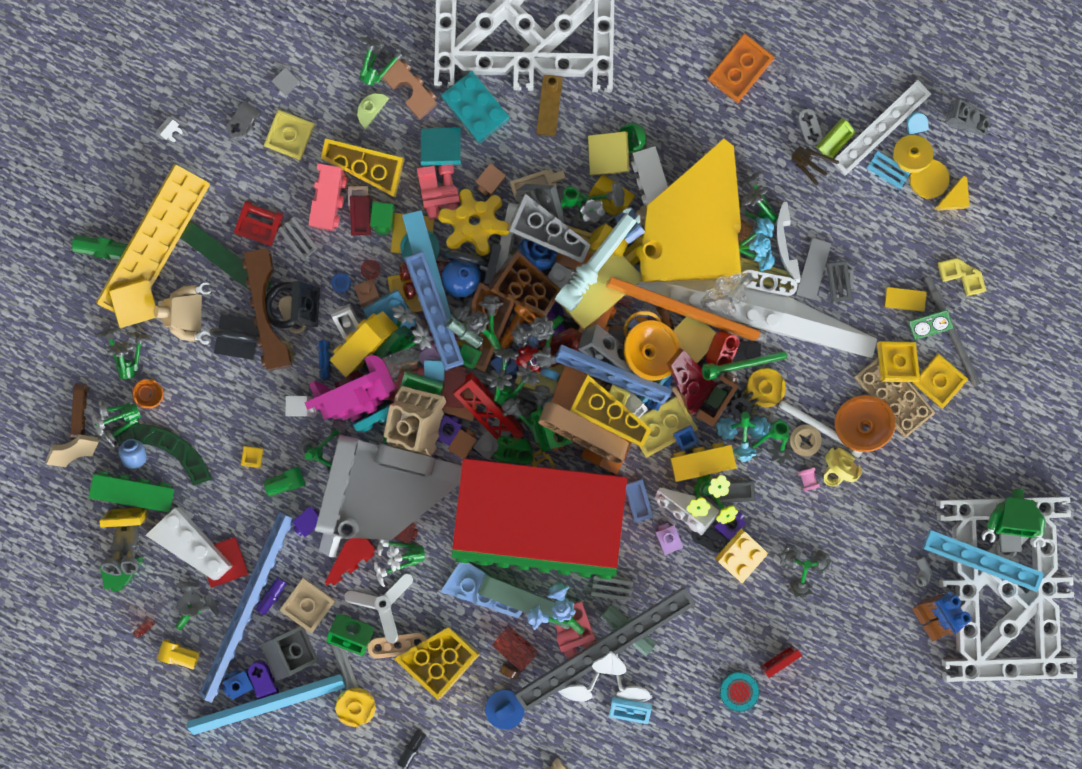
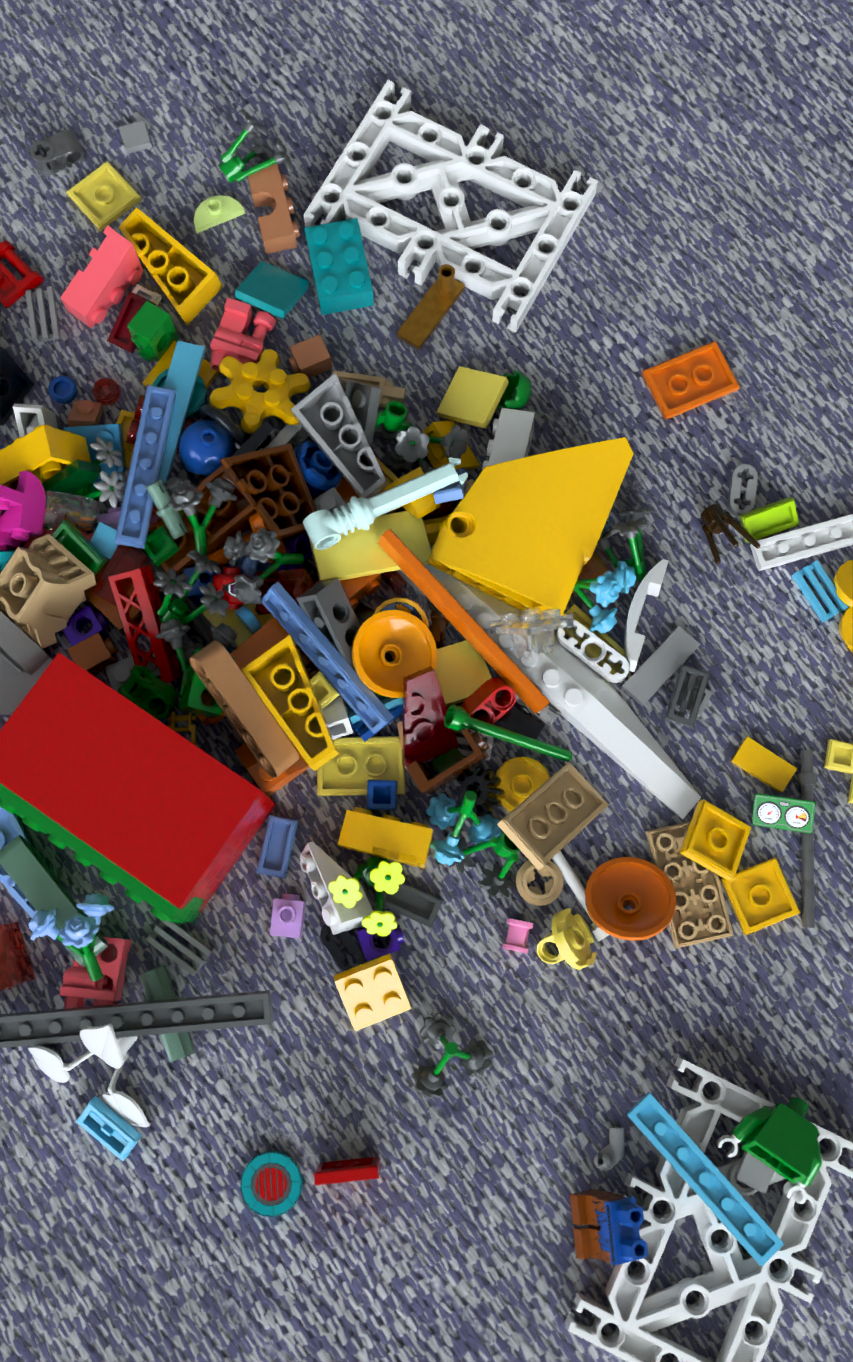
camera: 30 degrees right, 10 degrees down
(796, 398) = (553, 815): none -> tan tile

